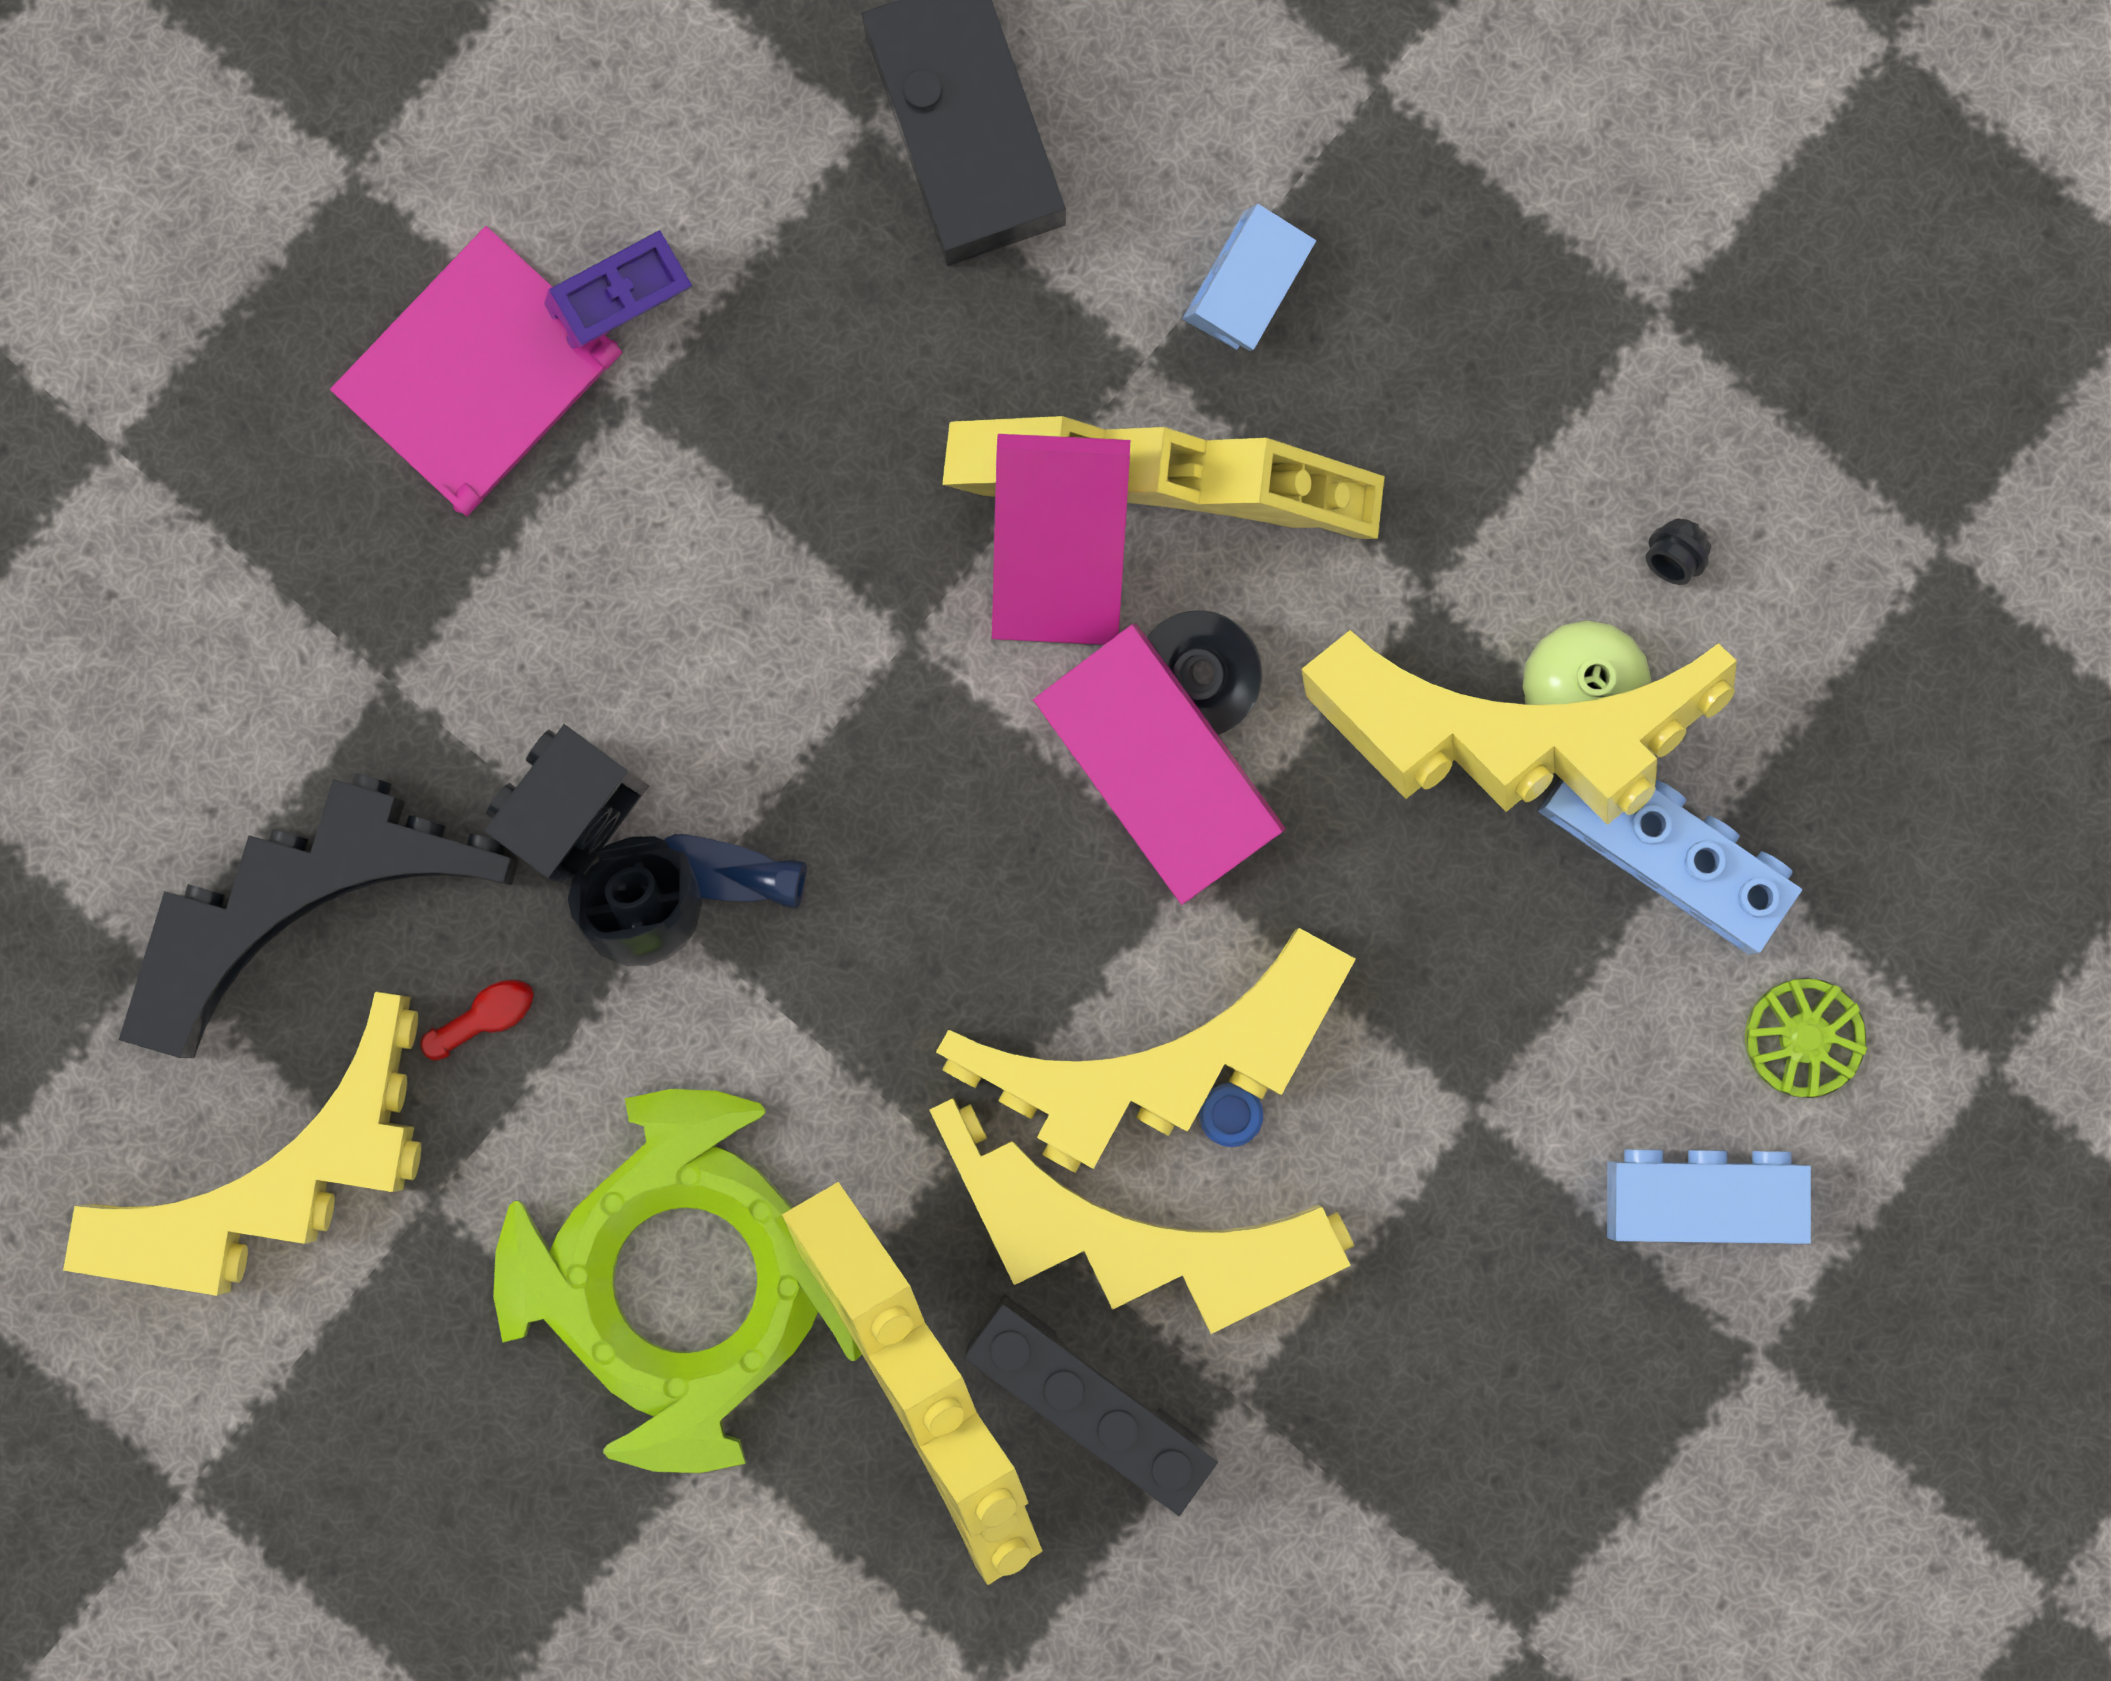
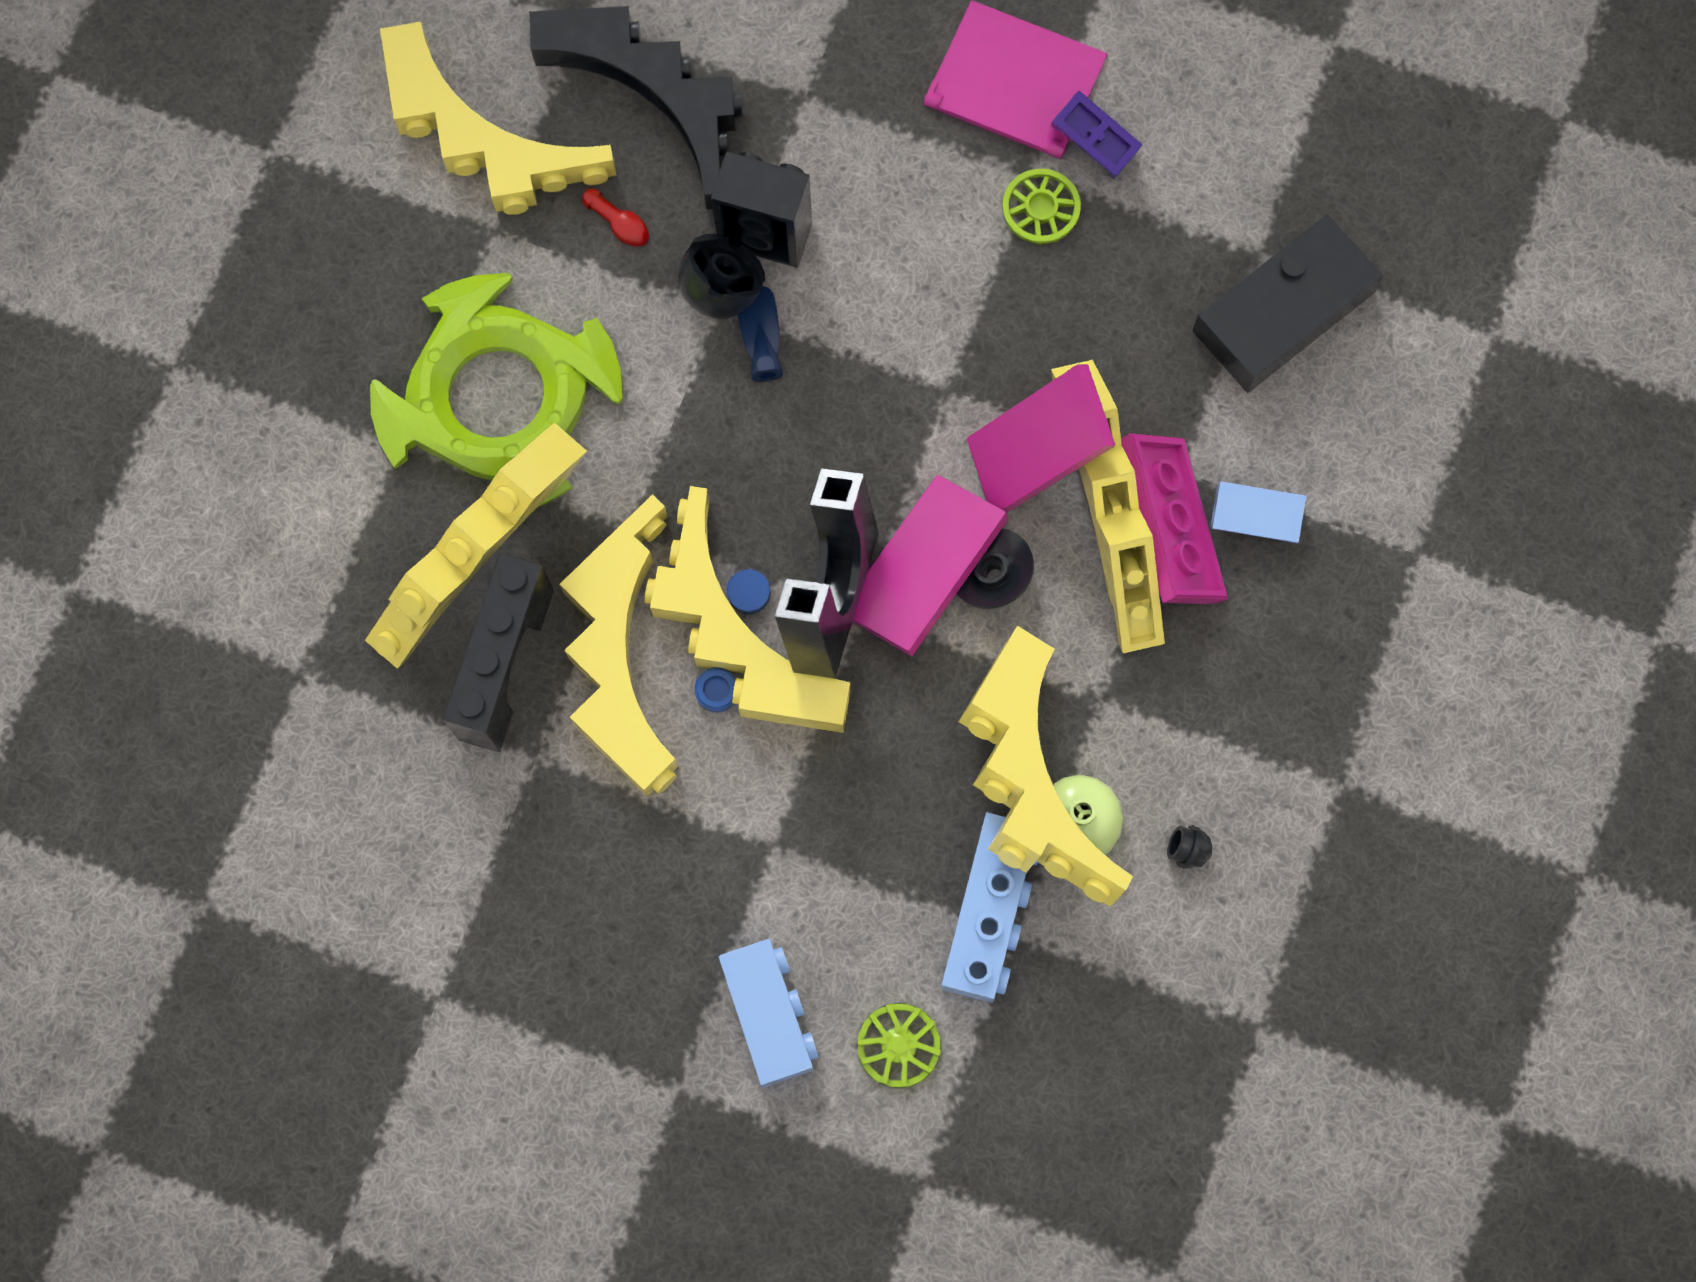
camera: 75 degrees right, 10 degrees down
(684, 406) = (1041, 206): none -> lime wheel
(1106, 1021) = (748, 591): none -> blue tile
(1209, 942) = (819, 614): none -> black arch
(1223, 395) = (1175, 515): none -> dark pink tile

